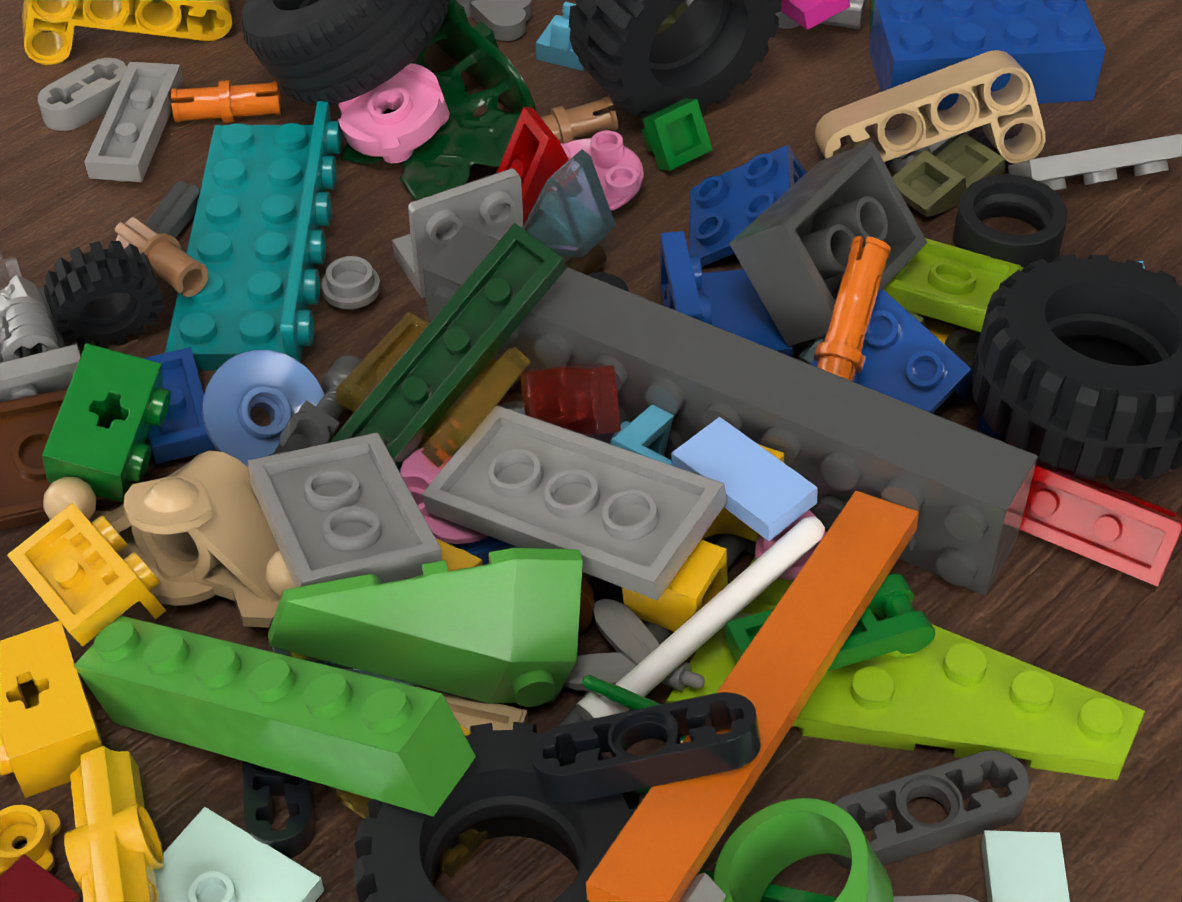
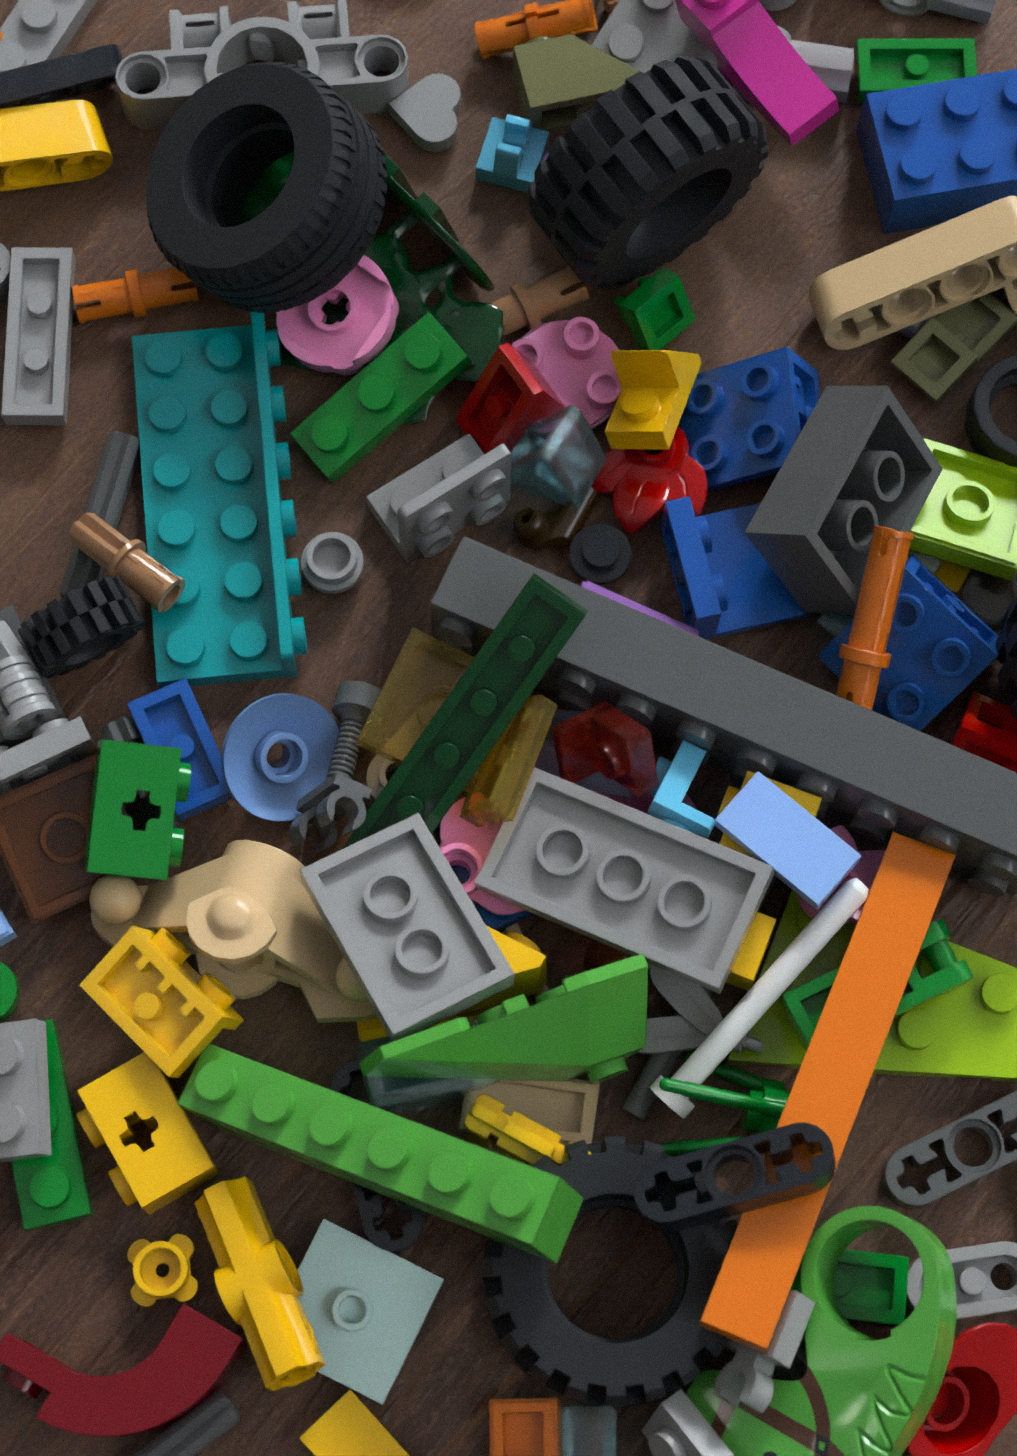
camera: 10 degrees left, 25 degrees up
(419, 172) = (381, 397): none -> green plate
(638, 244) = (646, 481): none -> red plate
(665, 171) = (651, 397): none -> yellow slope

